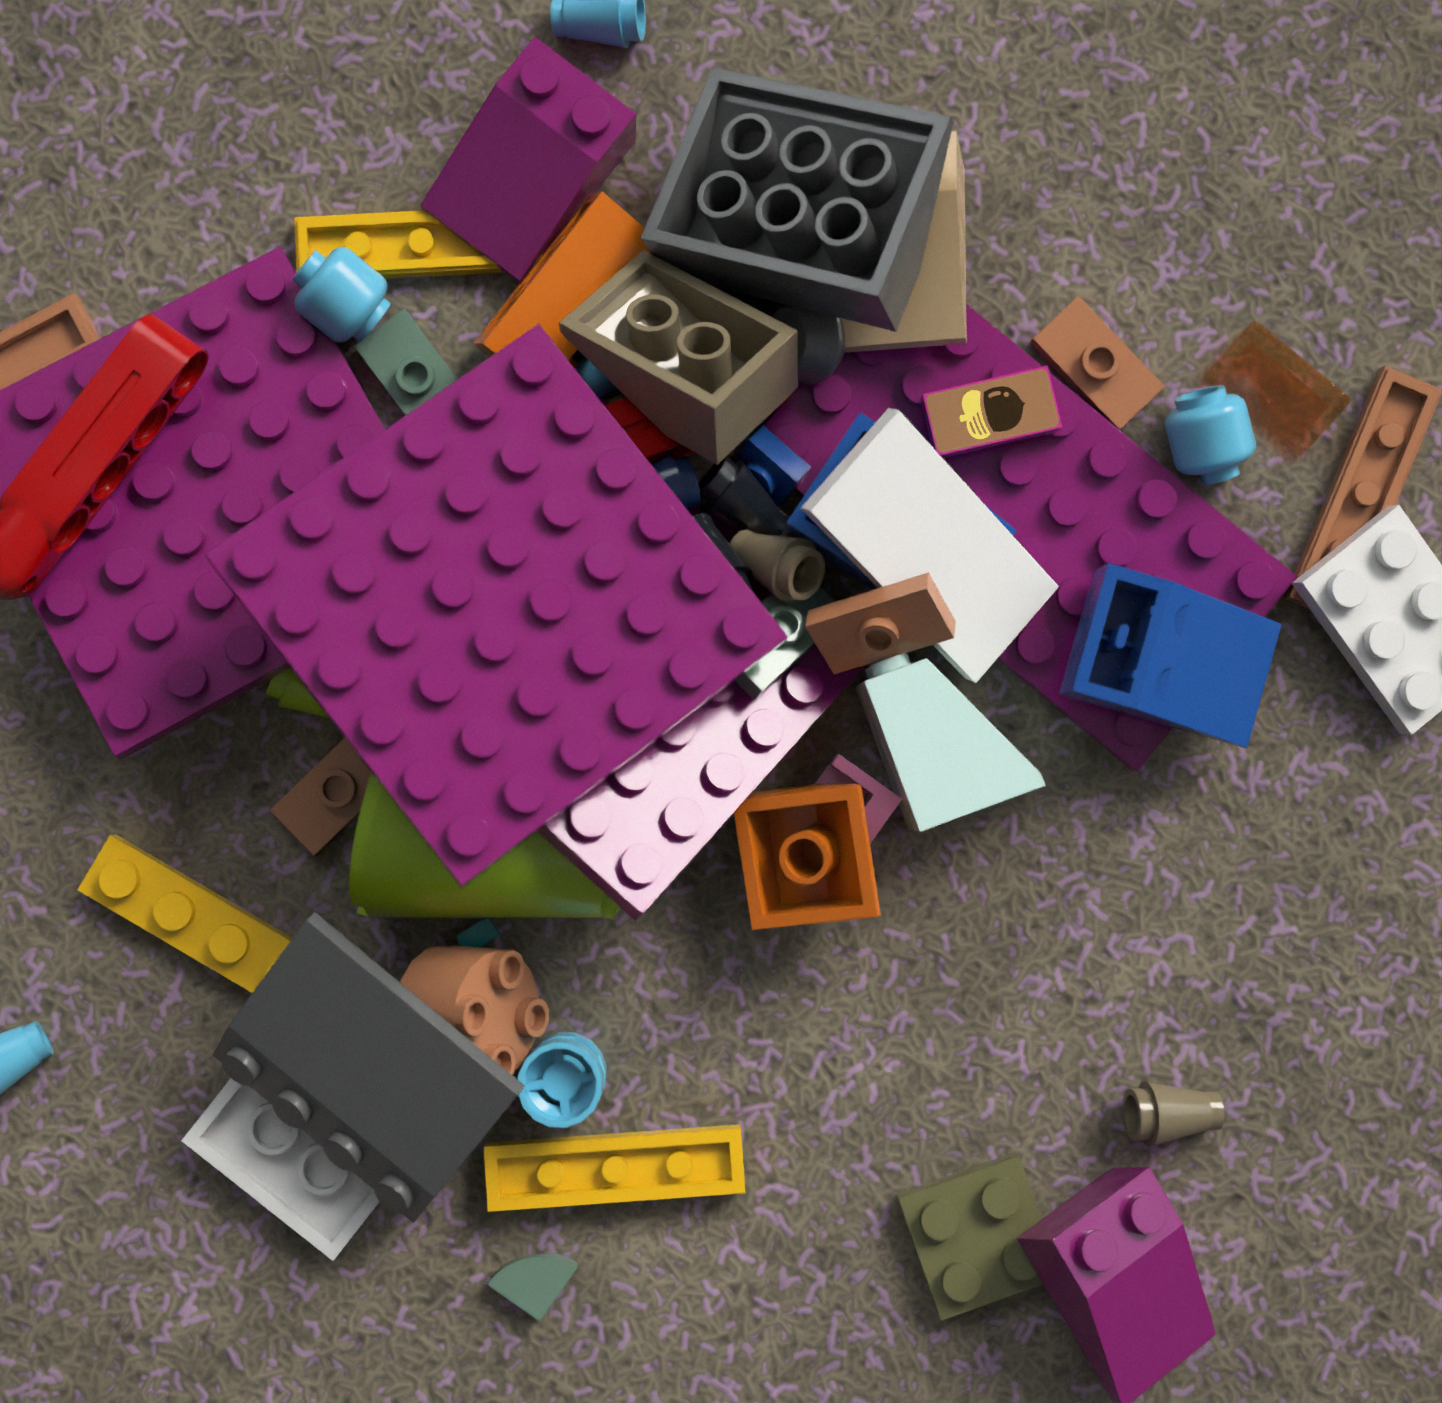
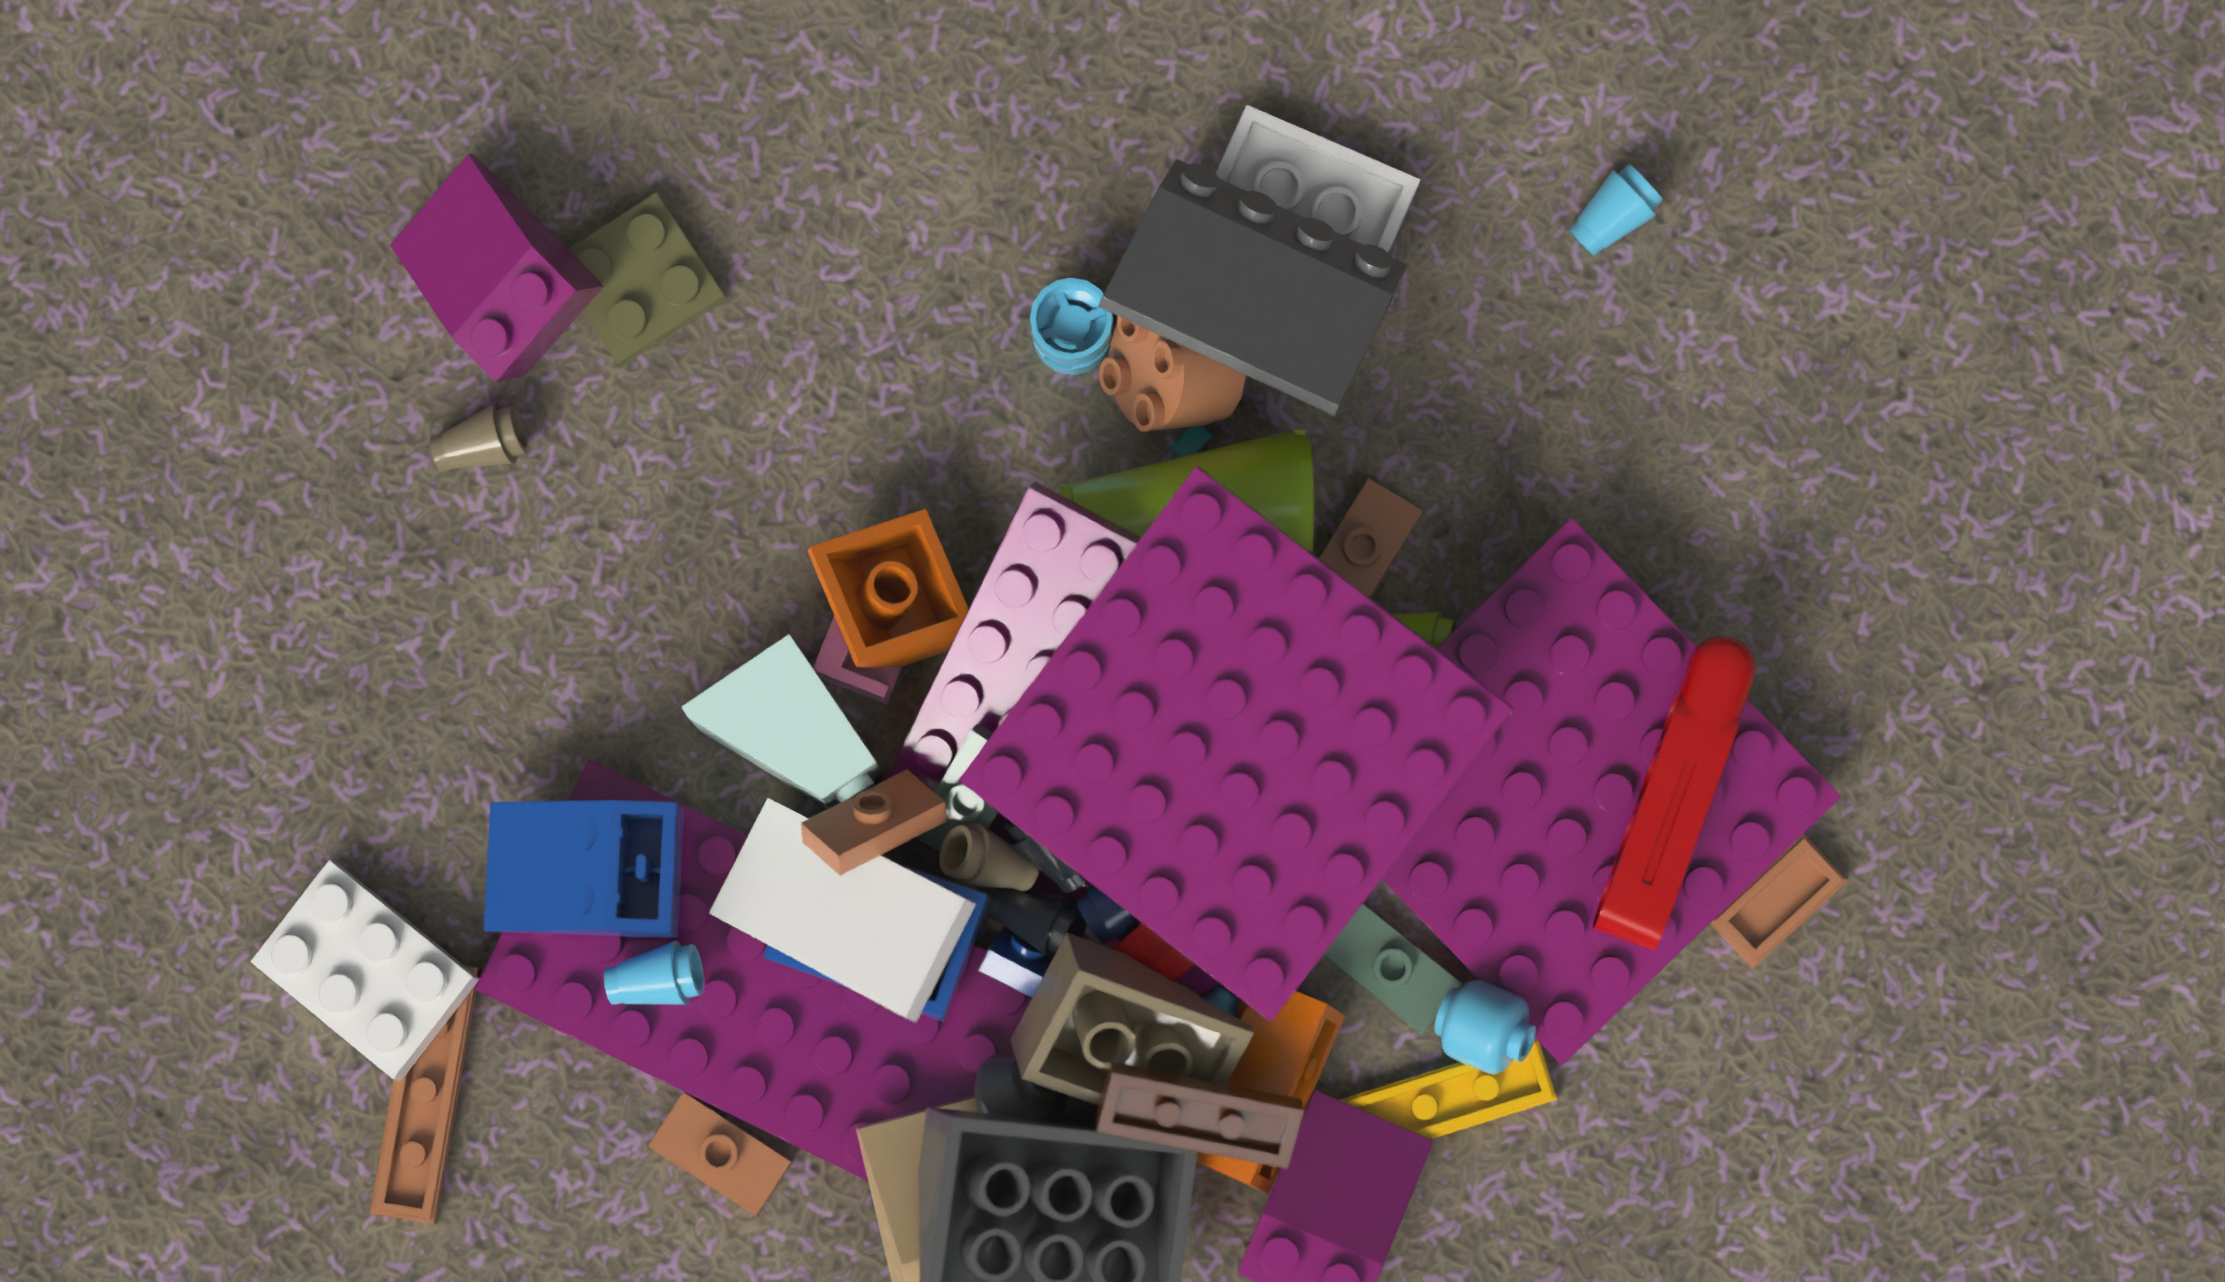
camera: 175 degrees right, 5 degrees down
(183, 913) = (1470, 390): yellow plate -> none
(533, 1281) = (1053, 133): sand green tile -> none
(614, 1168) = (1002, 256): yellow plate -> none
(633, 256) = (1199, 1115): none -> plate
(991, 412) = (815, 1069): medium nougat tile -> none
(1123, 536) = (657, 977): none -> medium azure cone
(1210, 434) = (593, 1107): medium azure head -> none
(1278, 387) = (536, 1173): clear orange slope -> none

